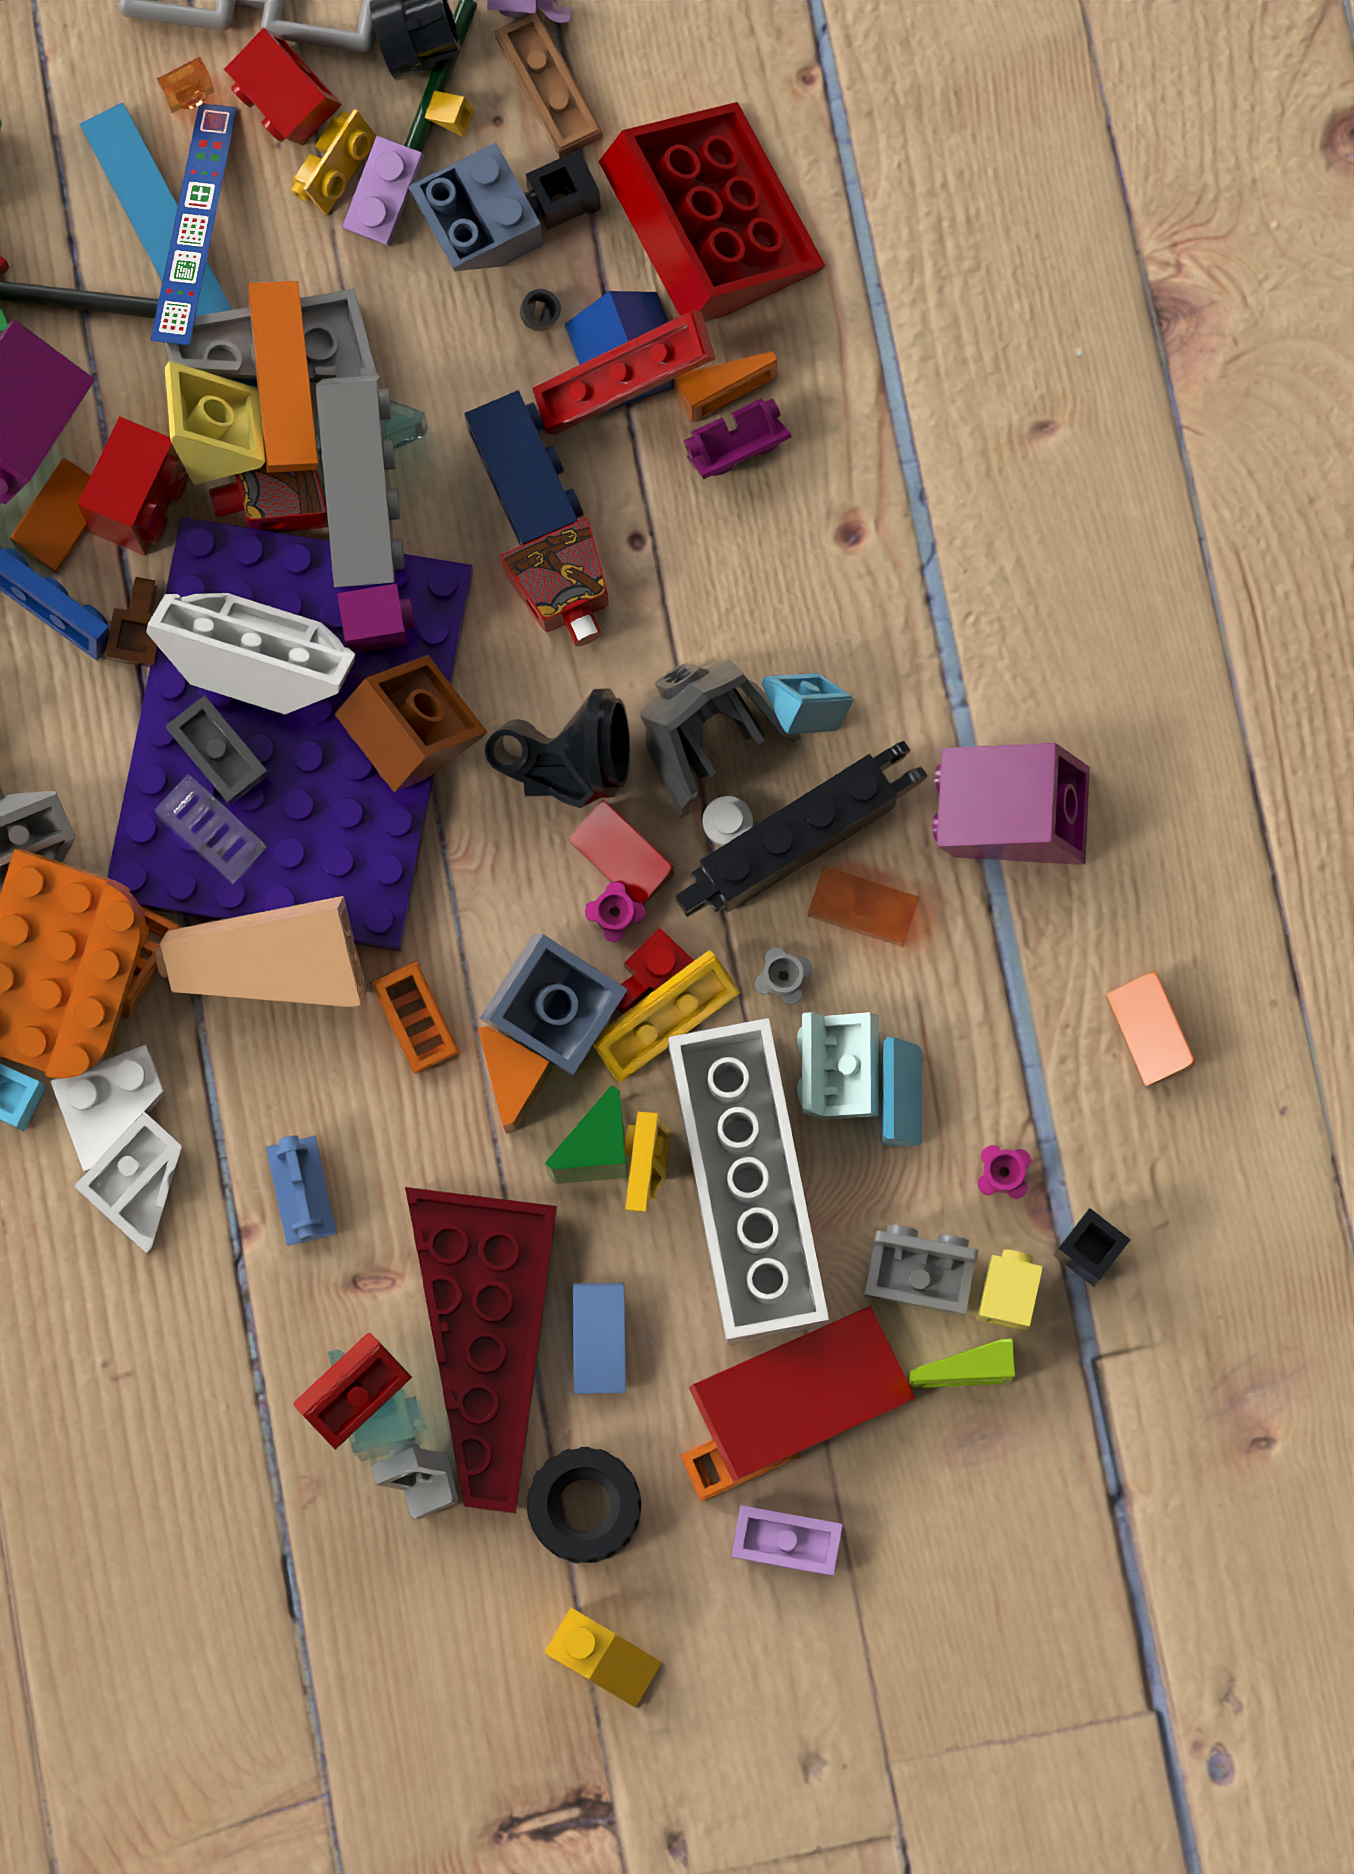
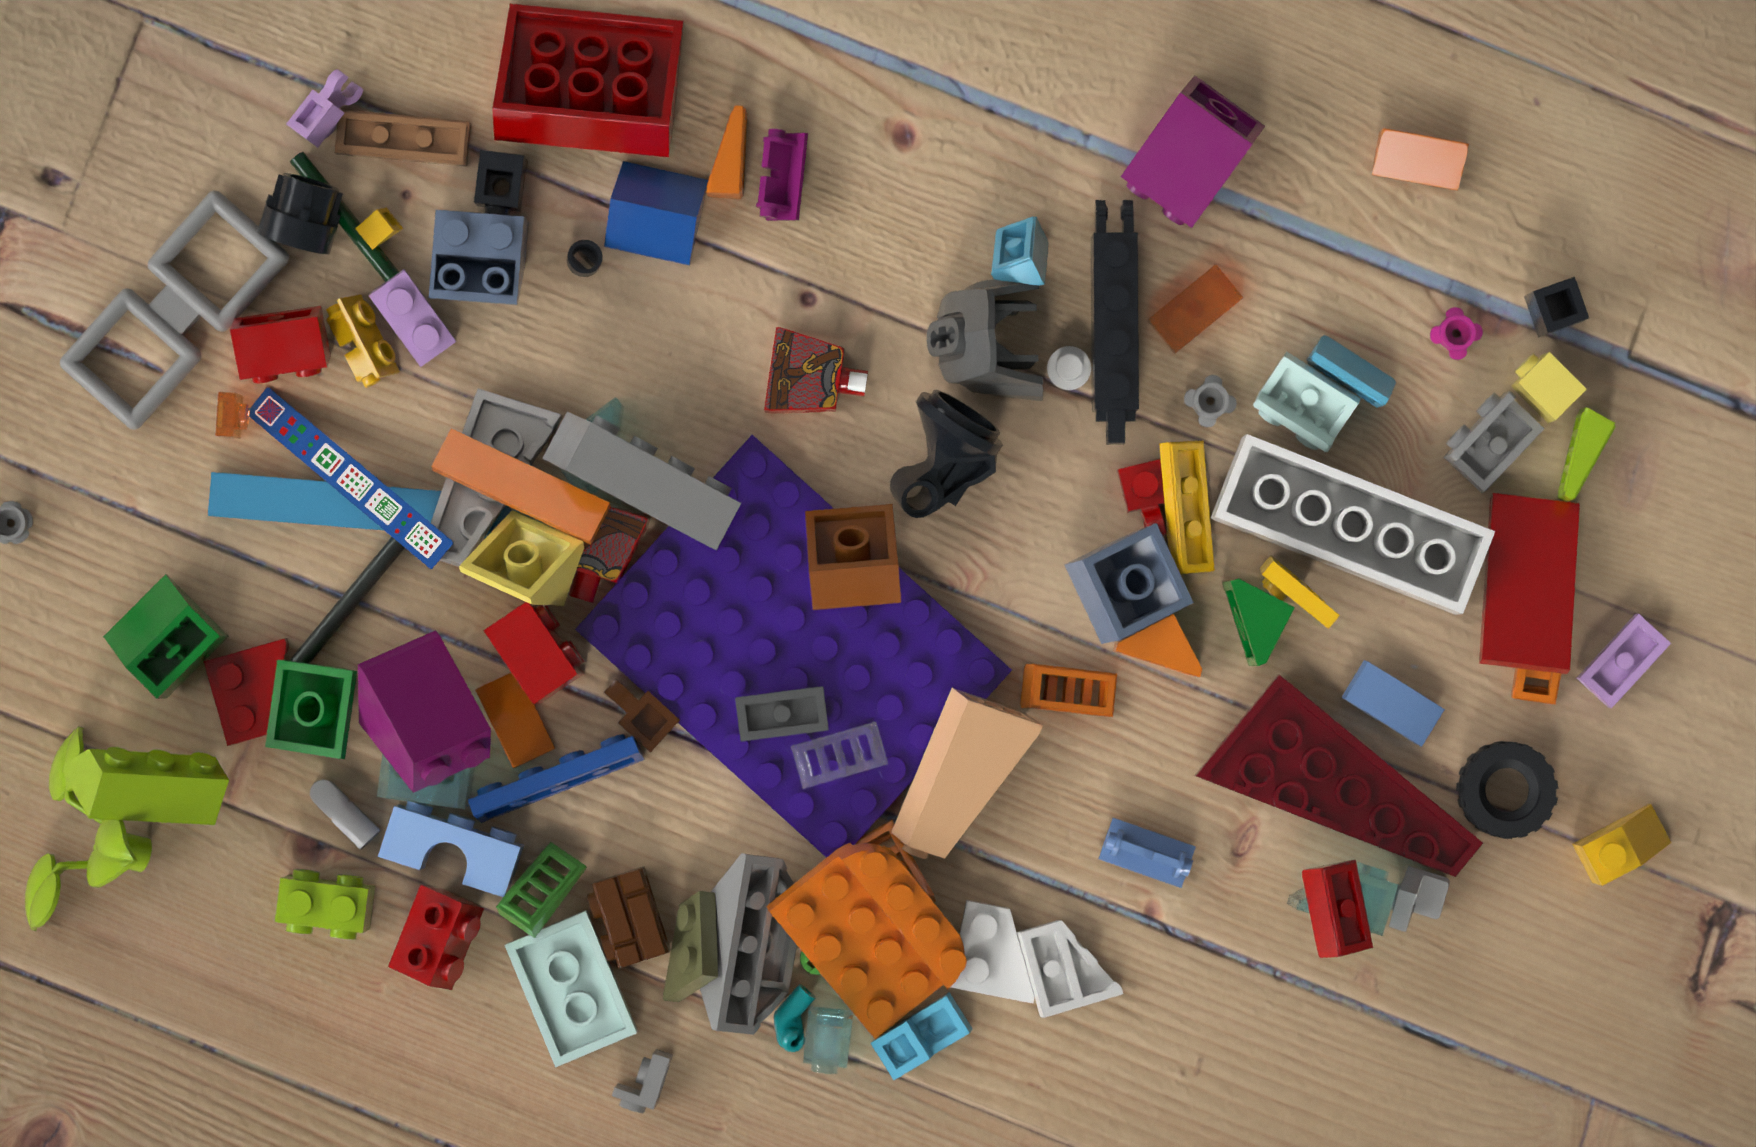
camera: 65 degrees left, 10 degrees up
(250, 650) = (724, 639): white wedge -> none
(375, 618) = (755, 533): magenta brick -> none
(522, 467) = (705, 350): dark blue brick -> none
(599, 911) = (1092, 484): dark pink plate -> none
(622, 853) = (1044, 462): slope -> none
(624, 372) = (682, 227): red tile -> none

